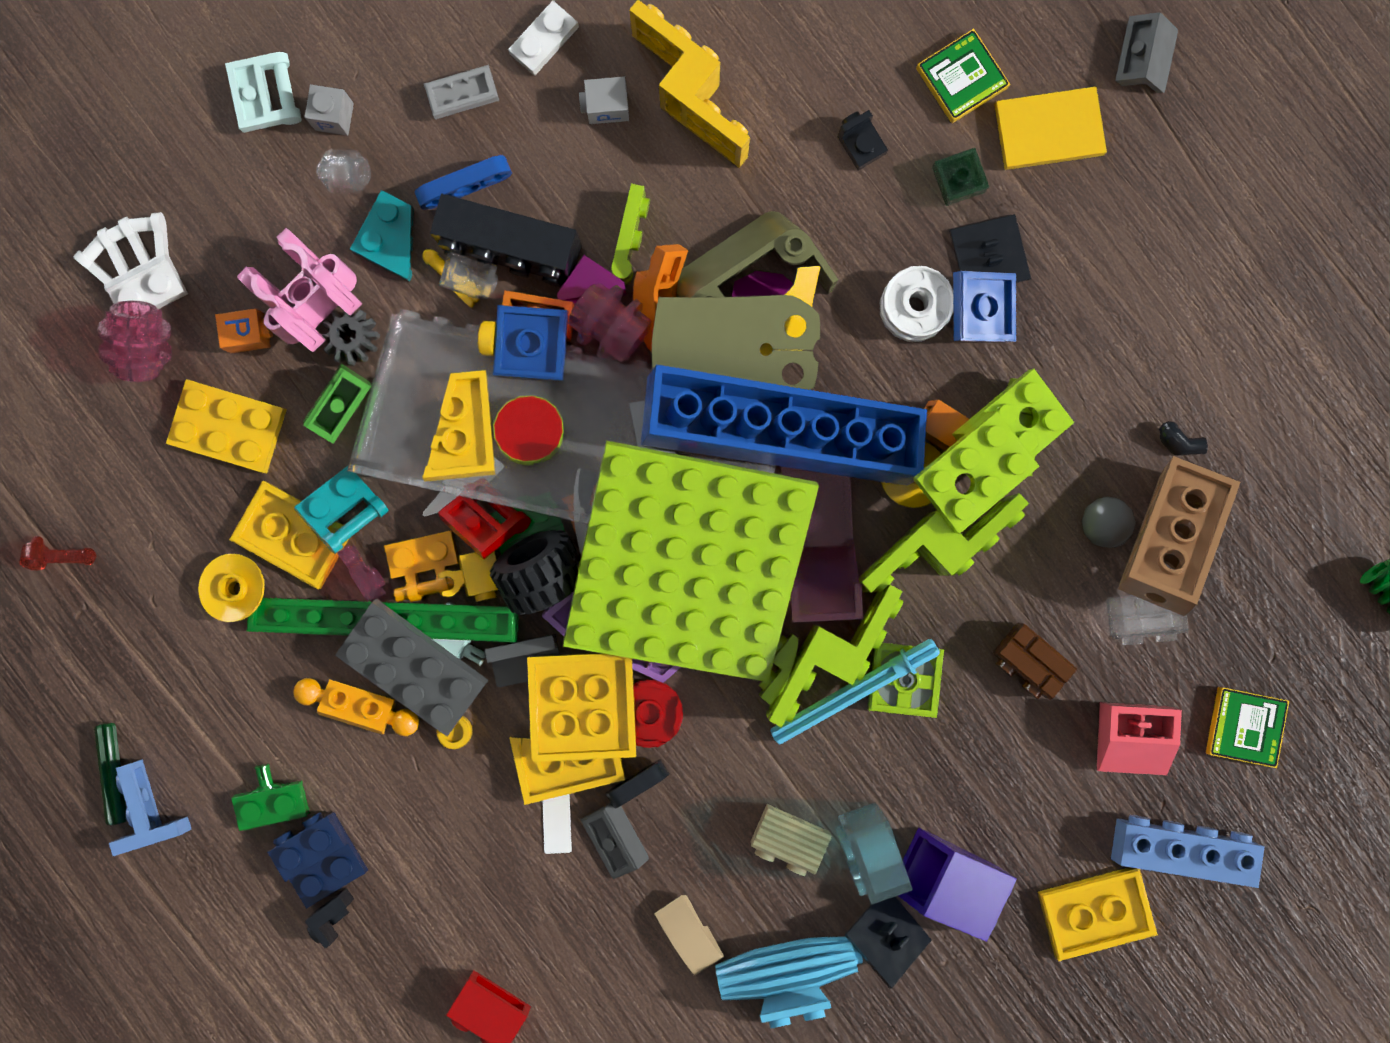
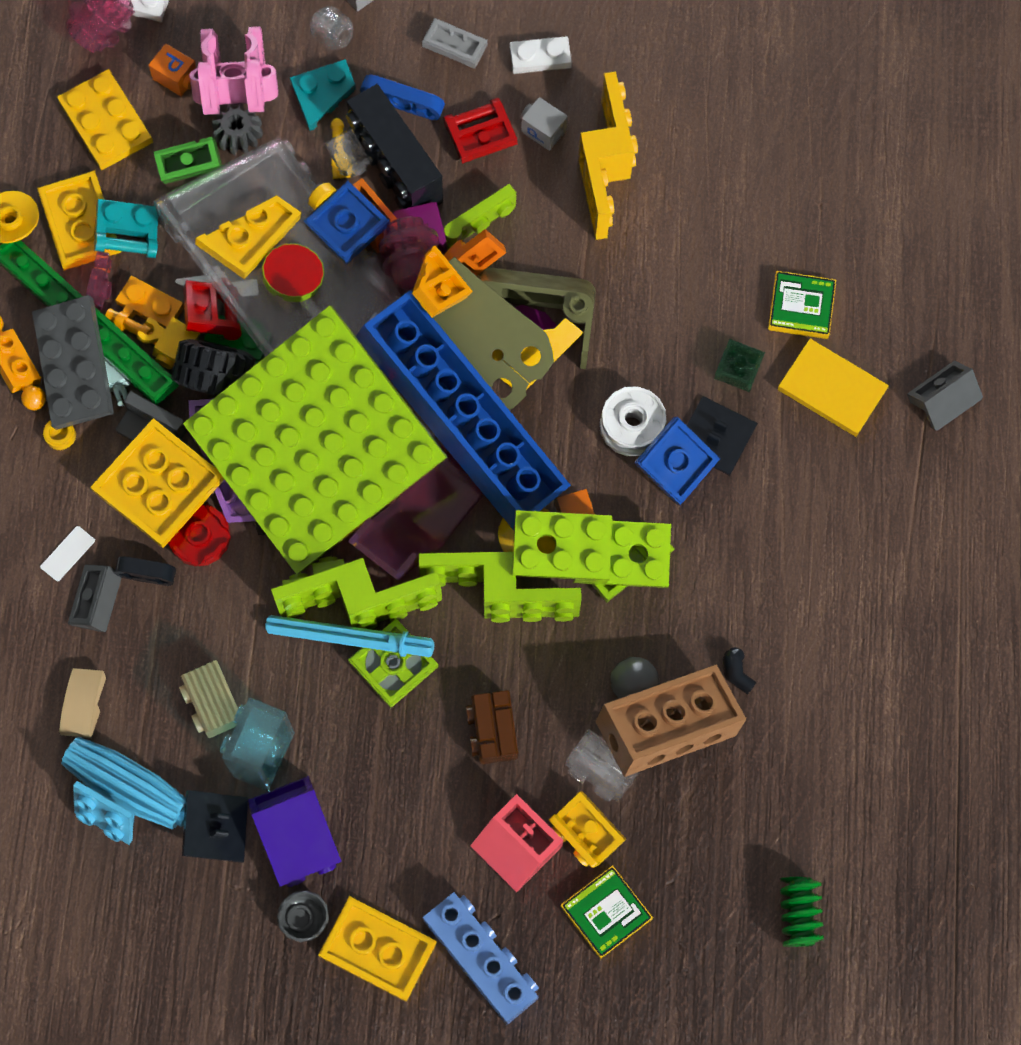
camera: 40 degrees right, 15 degrees down
(558, 778) = (103, 523): yellow wing -> none
(565, 158) = (483, 137): none -> red plate
(673, 336) = (439, 284): none -> light orange wing
(861, 139) = (694, 287): black bracket -> none
(1021, 944) = (302, 916): none -> dark grey hair
(1179, 679) = (587, 830): none -> yellow bracket

